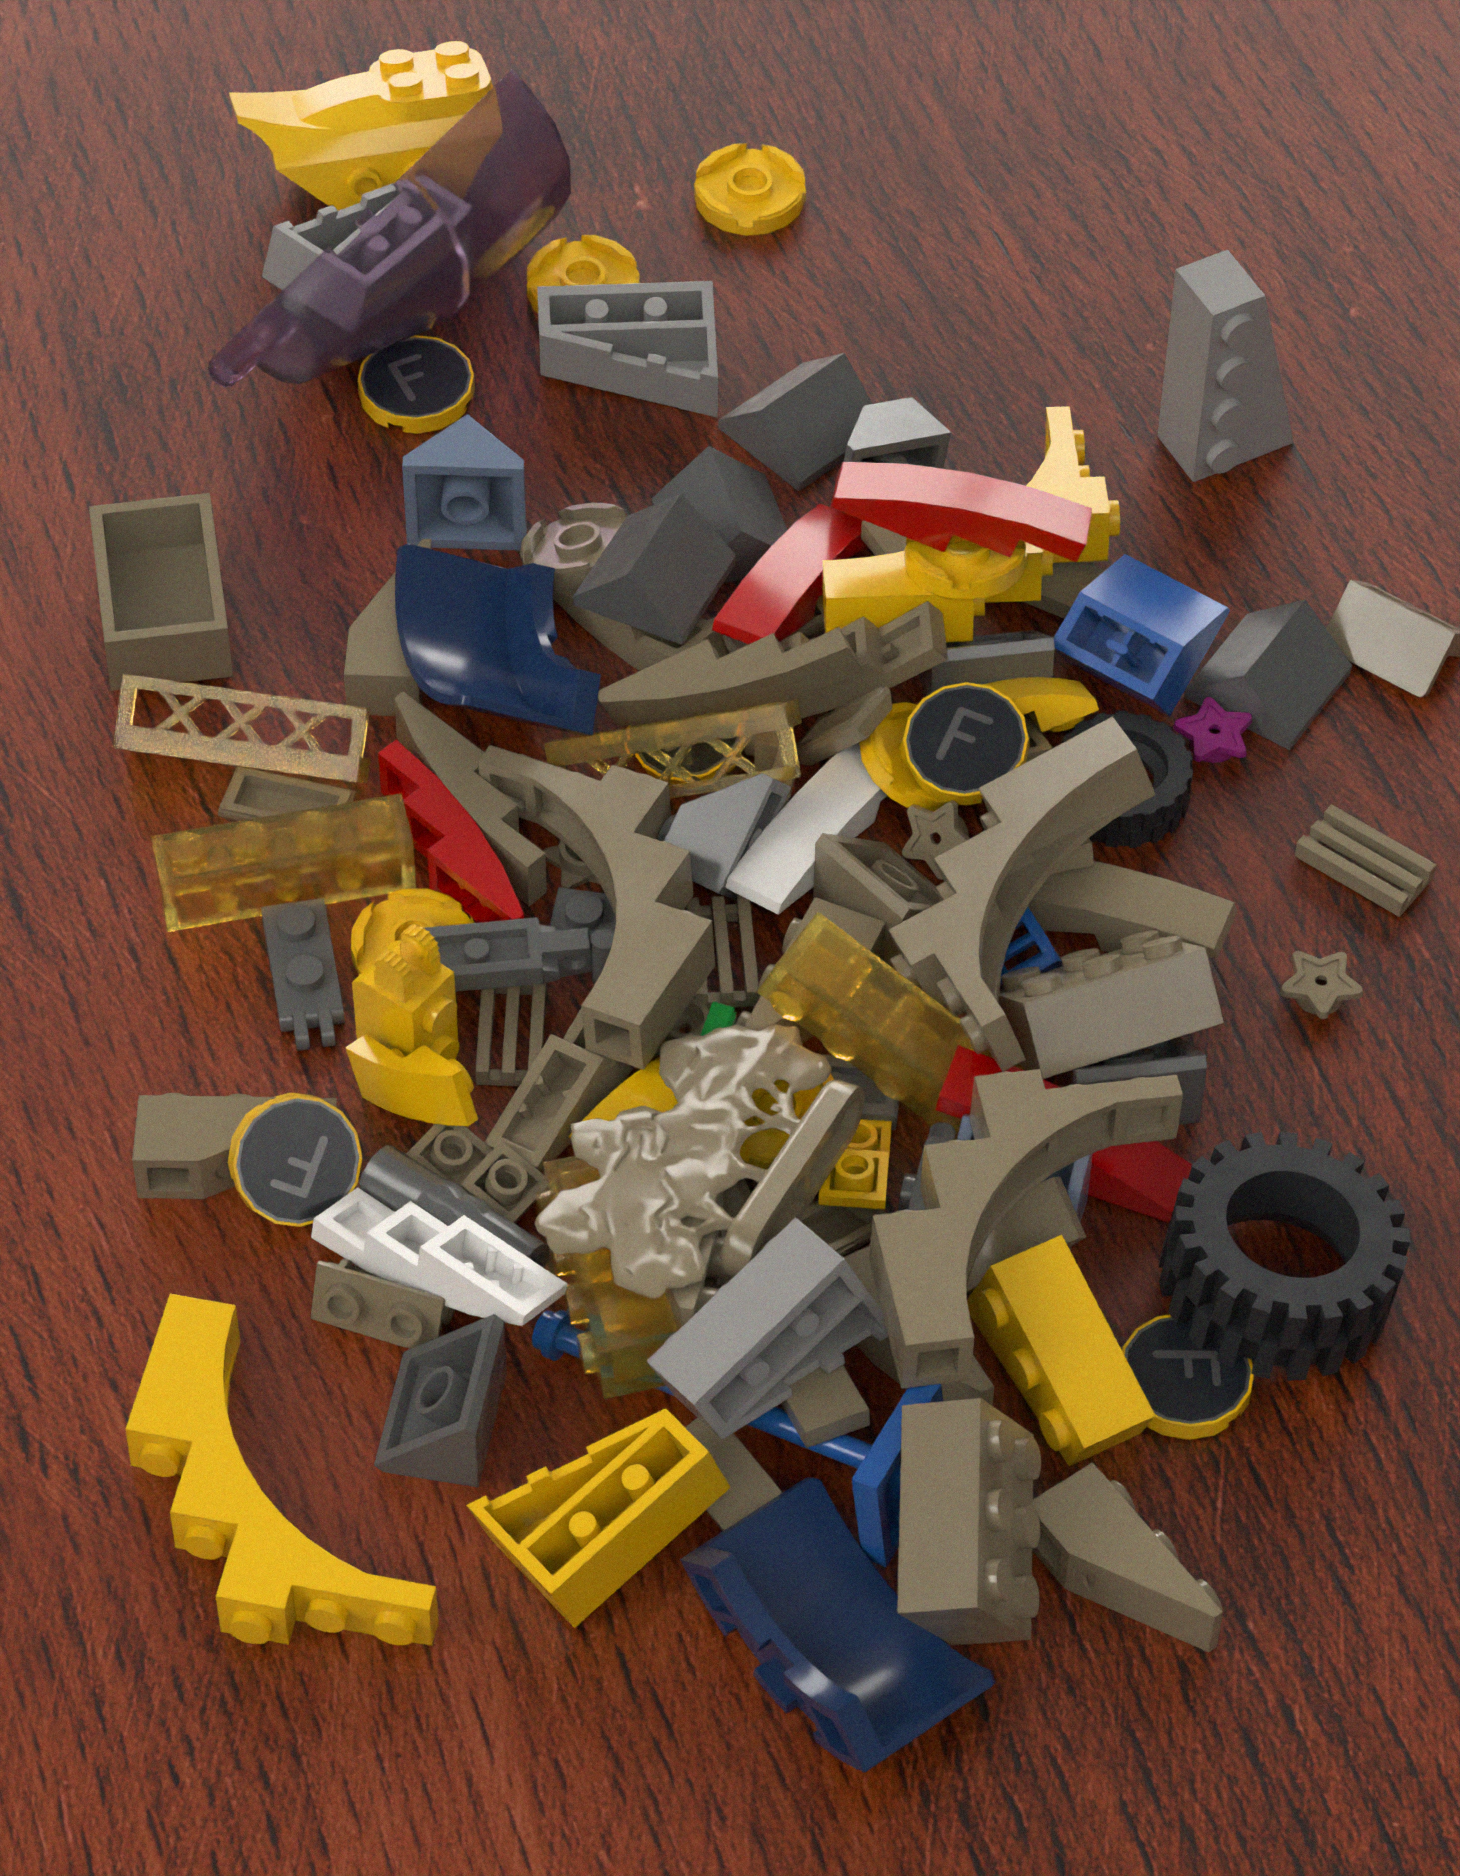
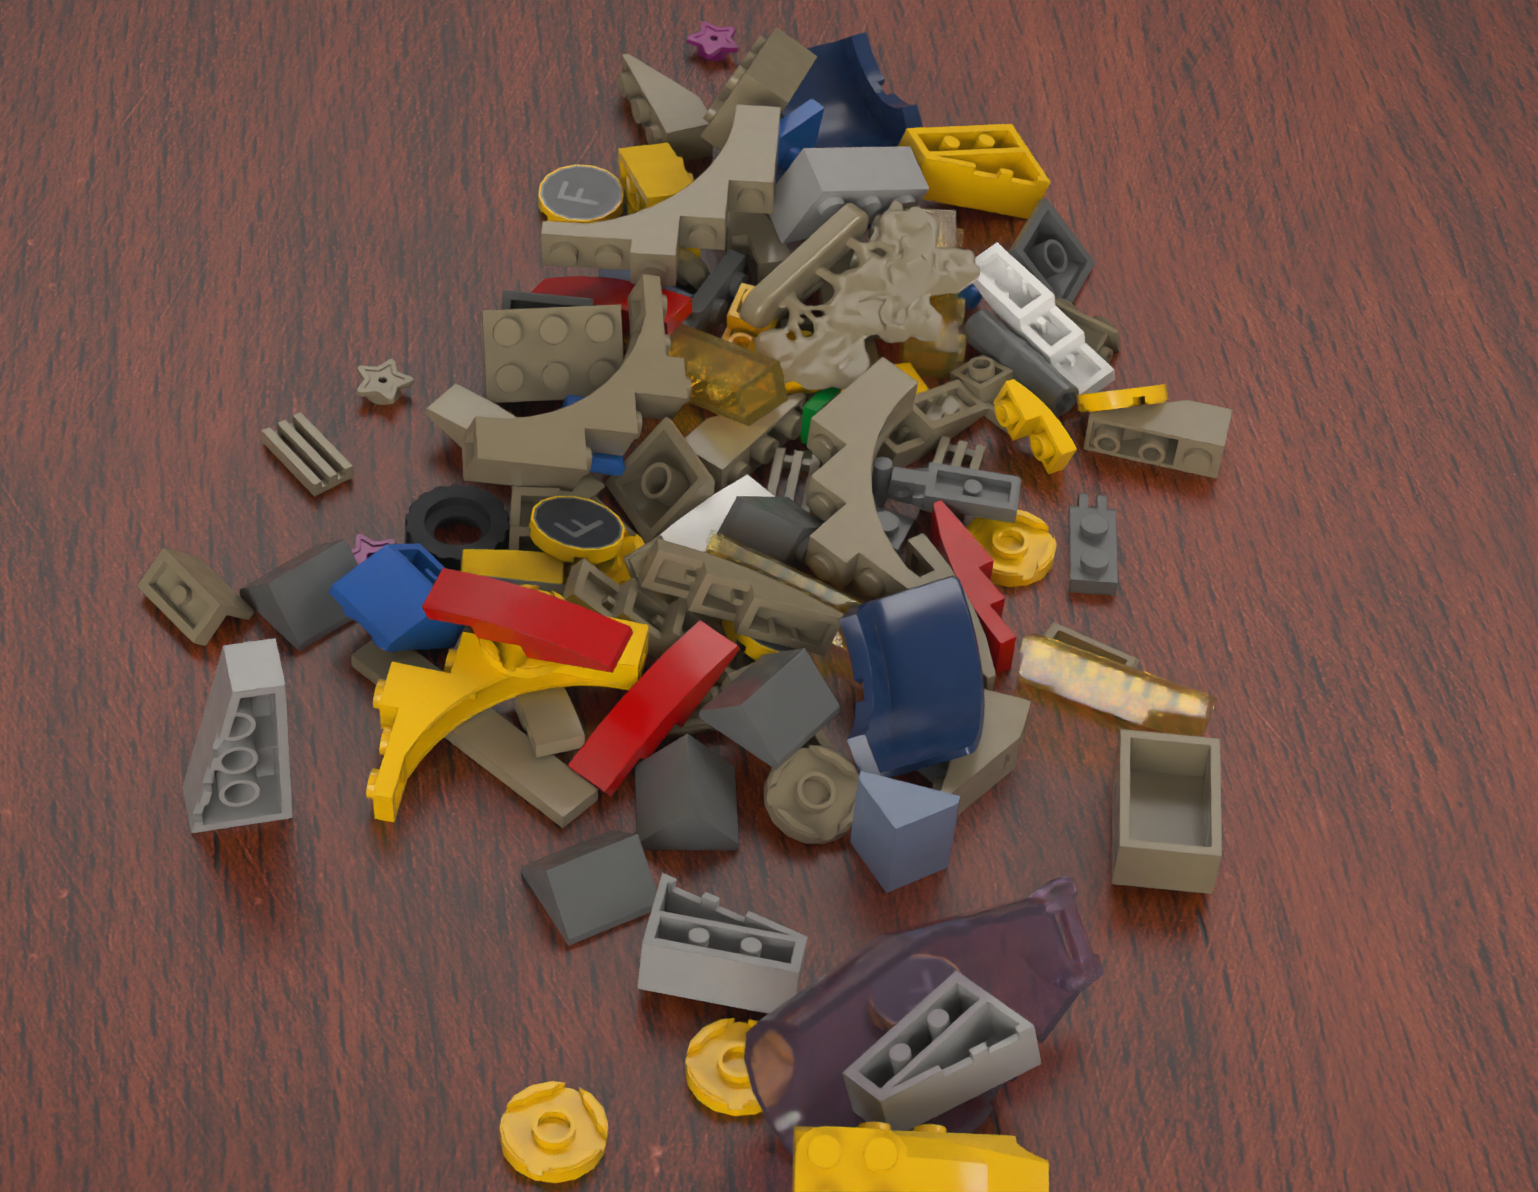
camera: 170 degrees left, 5 degrees down
(220, 1510) = (1194, 243): yellow arch -> none
(282, 859) = (1099, 596): clear yellow brick -> none
(408, 997) = (1034, 448): yellow hinge -> none
(898, 433) = (538, 800): slope -> none
(1094, 1782) = (713, 42): none -> magenta plate
(1270, 1314) = (502, 242): black tyre -> none

